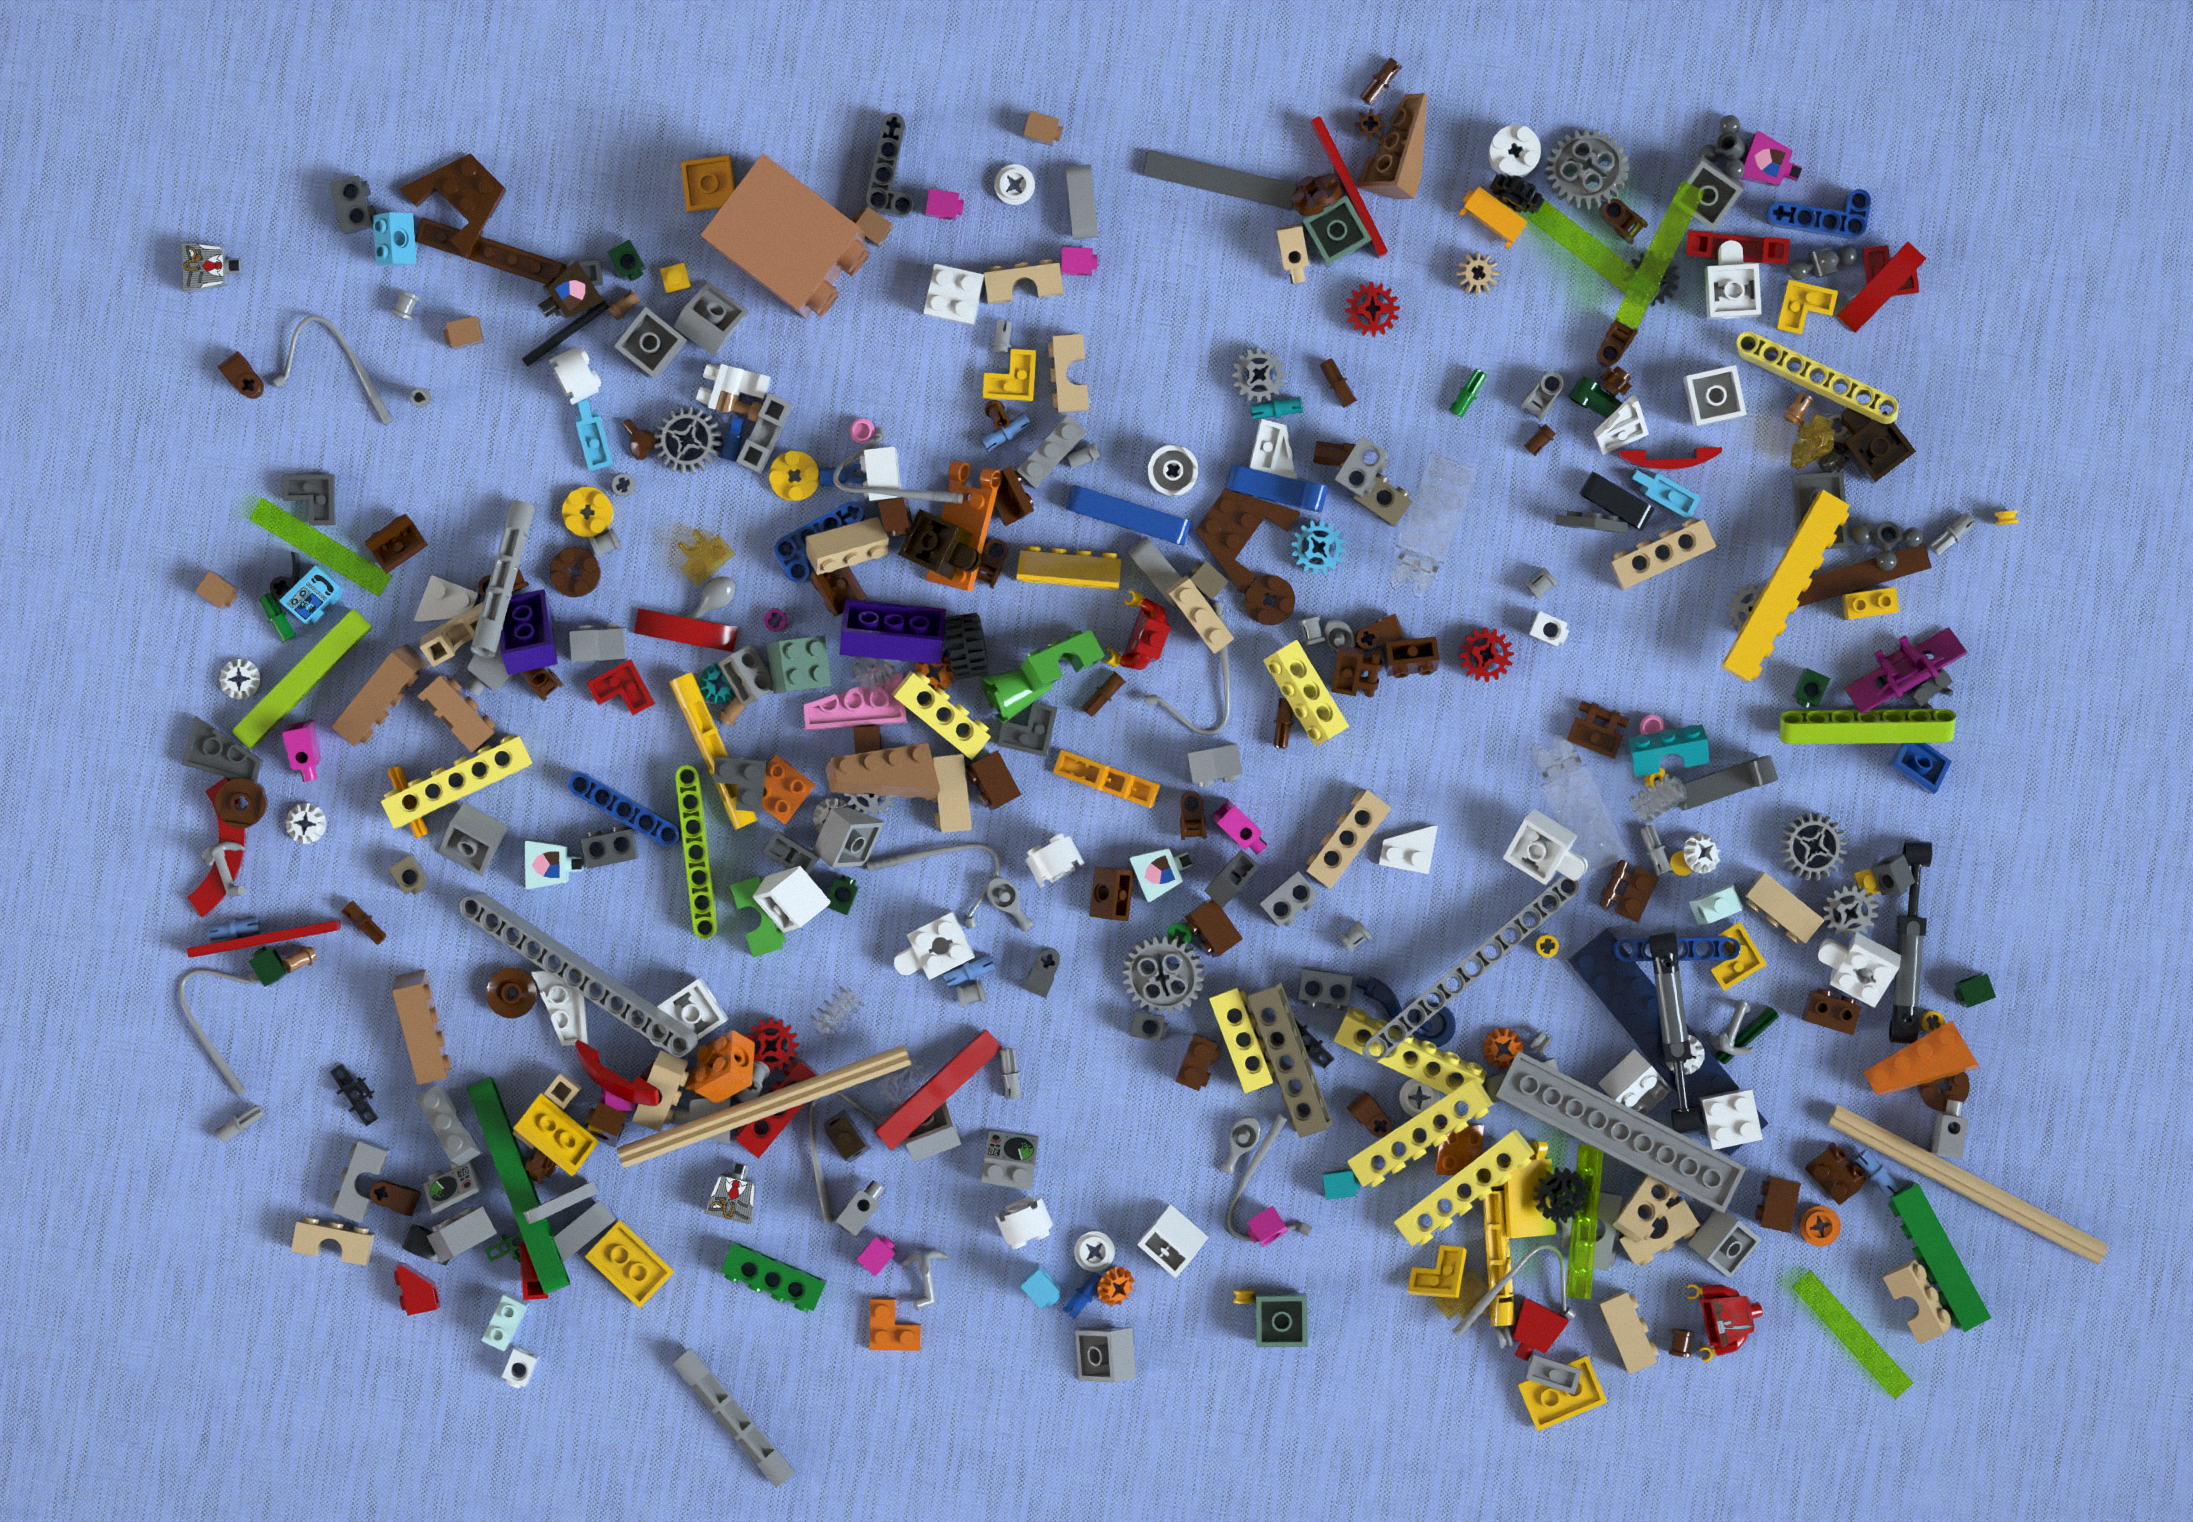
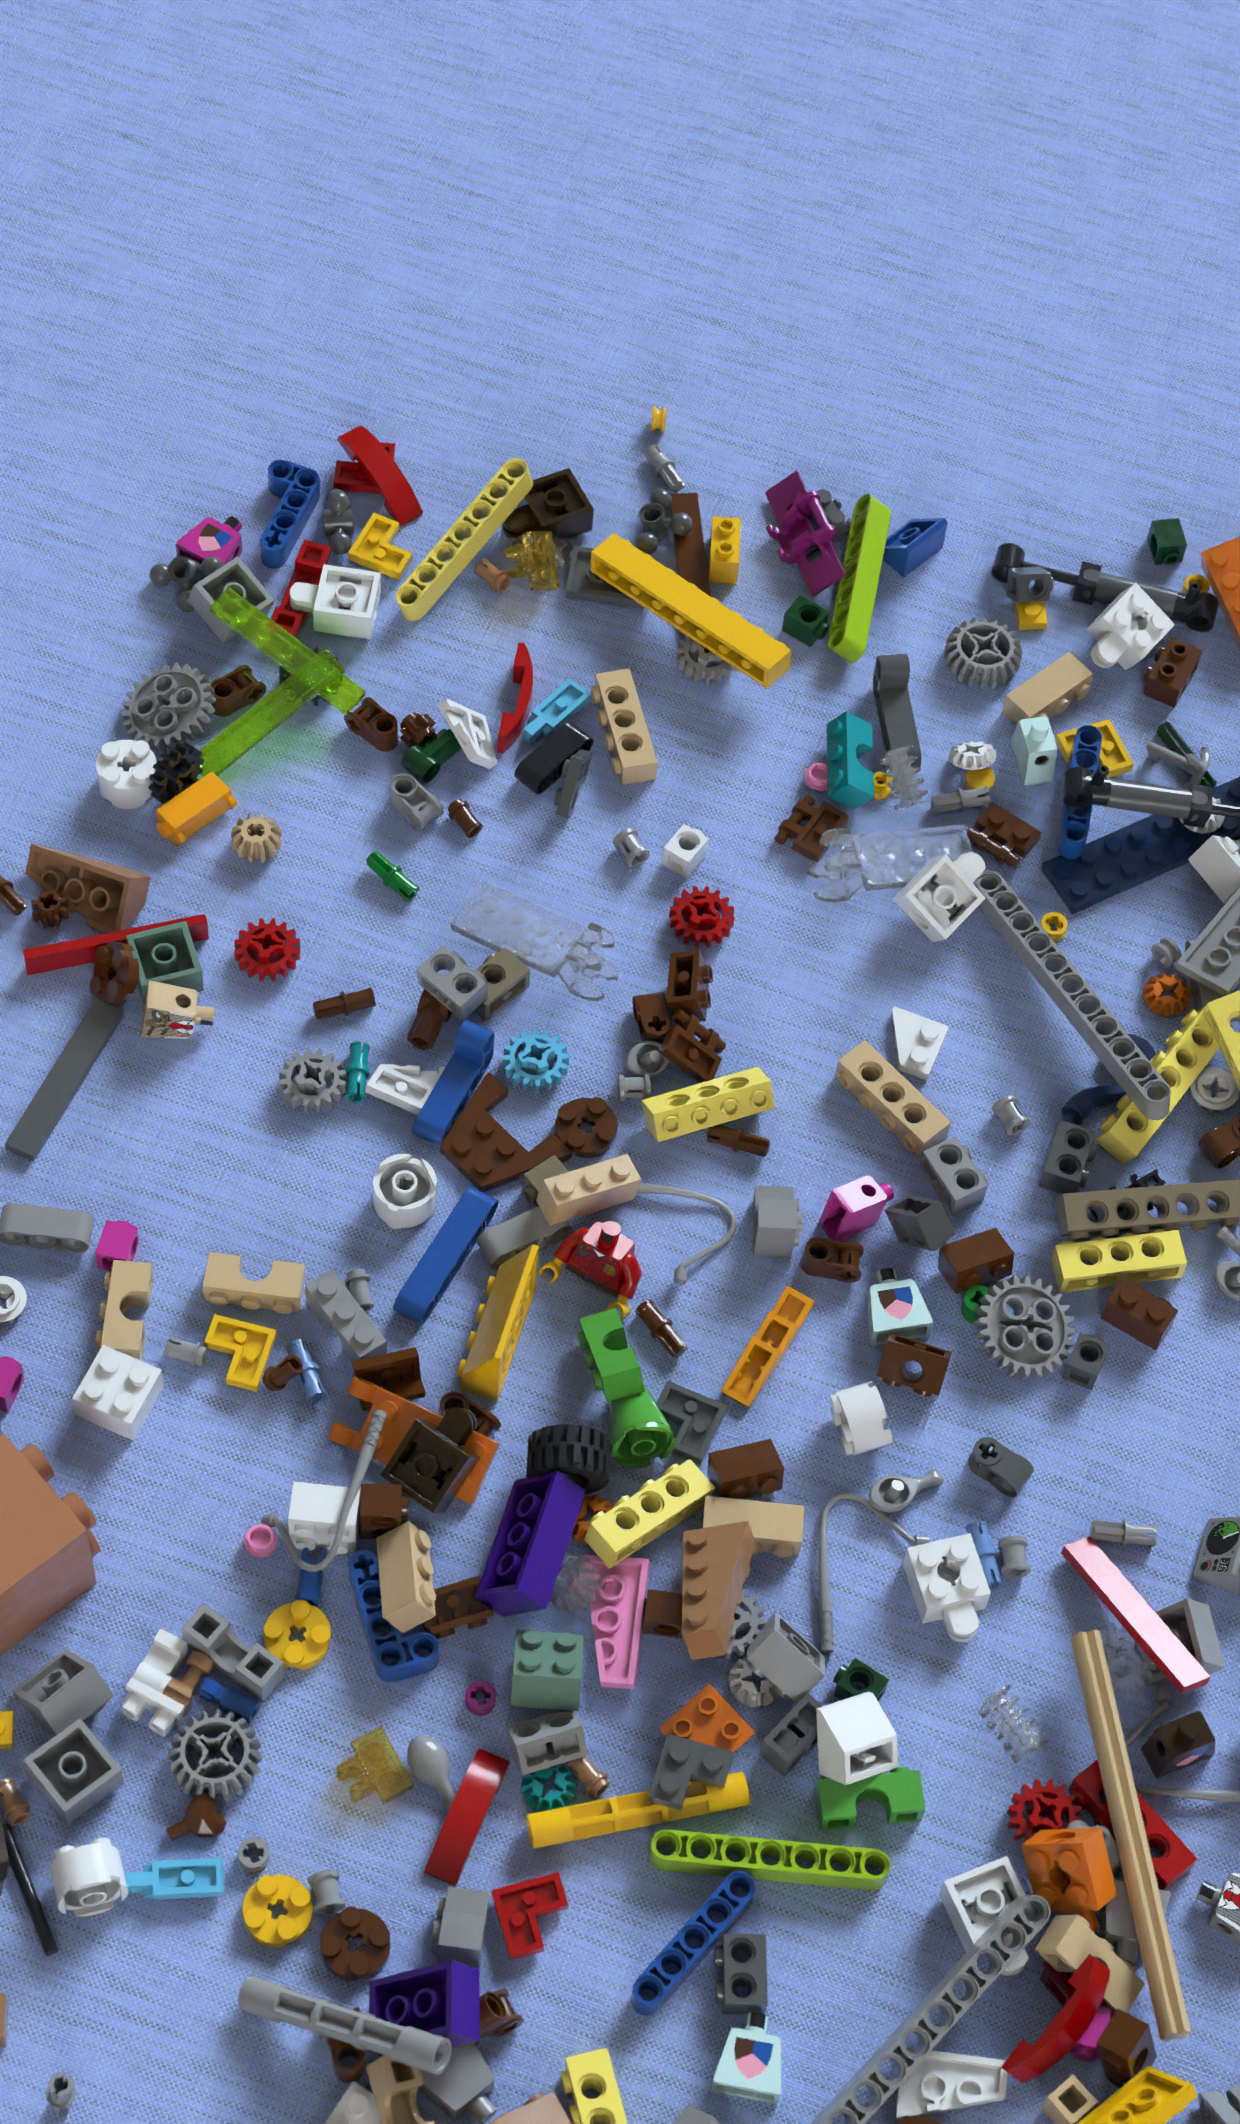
camera: 80 degrees left, 30 degrees down
(1714, 396) = (459, 640): white brick -> none
(1855, 901) = (1060, 631): light grey gear -> none

